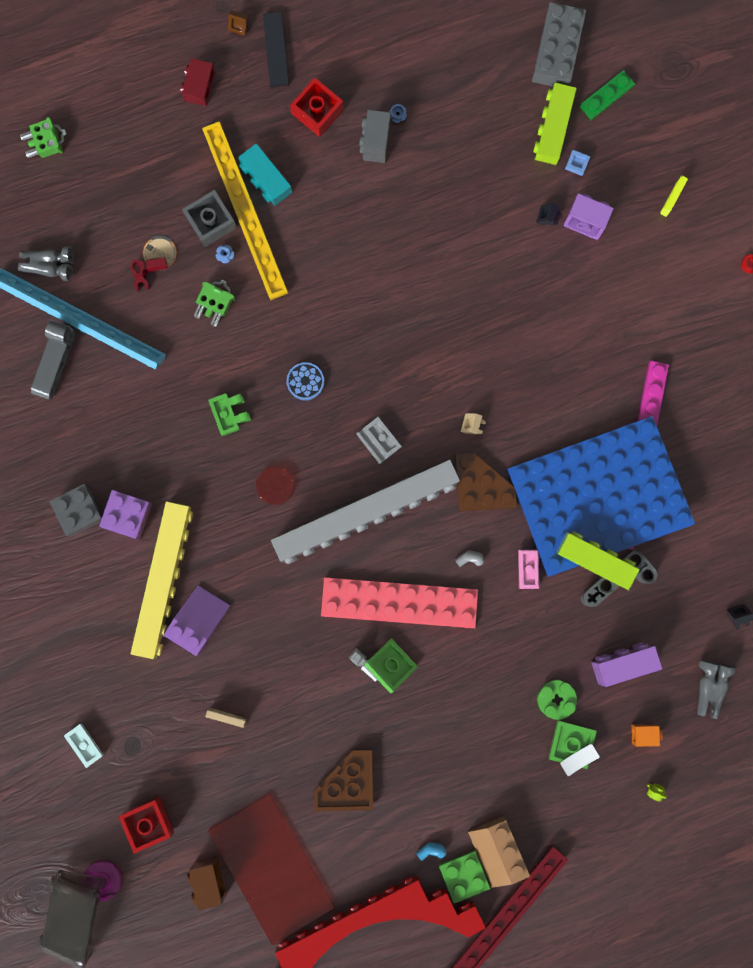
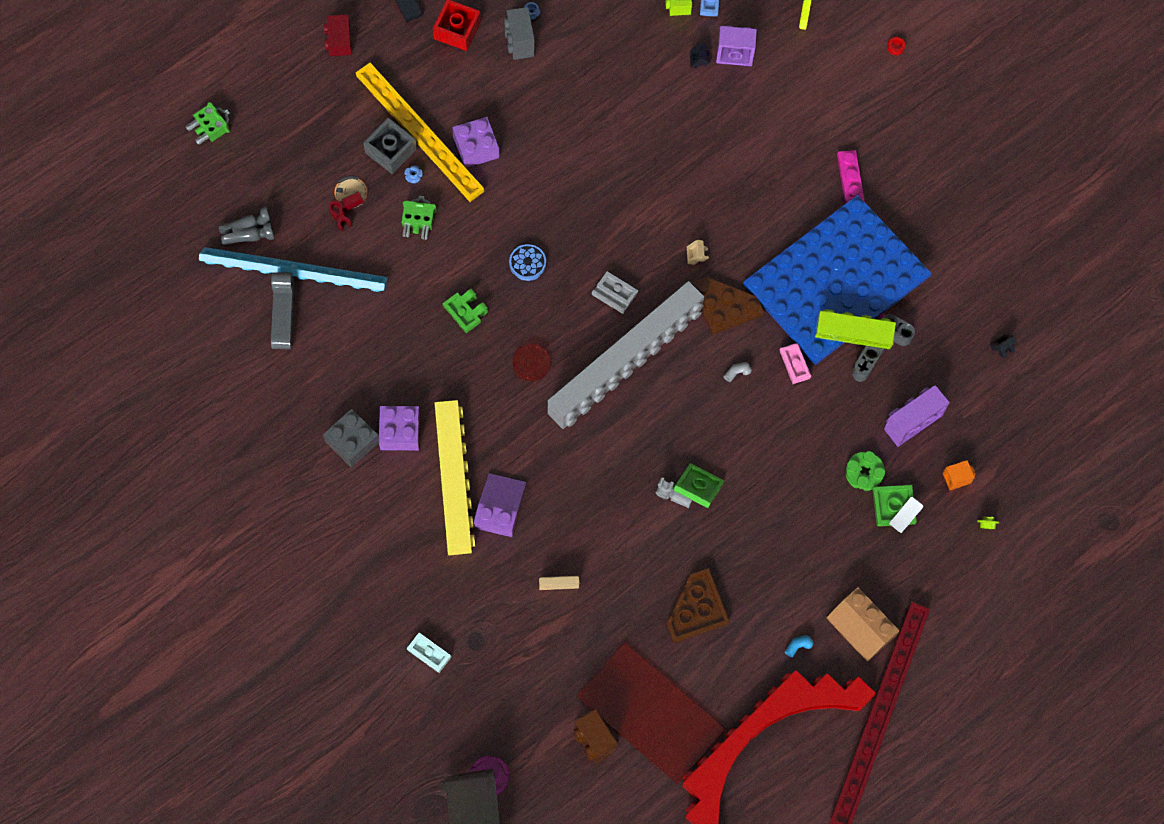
camera: 20 degrees left, 15 degrees down
(146, 824) = (516, 703): red brick -> none
(264, 175) = (428, 96): teal brick -> none
(295, 240) = (475, 142): none -> medium lavender brick
(399, 602) = (685, 430): coral plate -> none
(464, 876) = (838, 658): bright green plate -> none
(711, 689) = (1003, 417): dark grey piece -> none

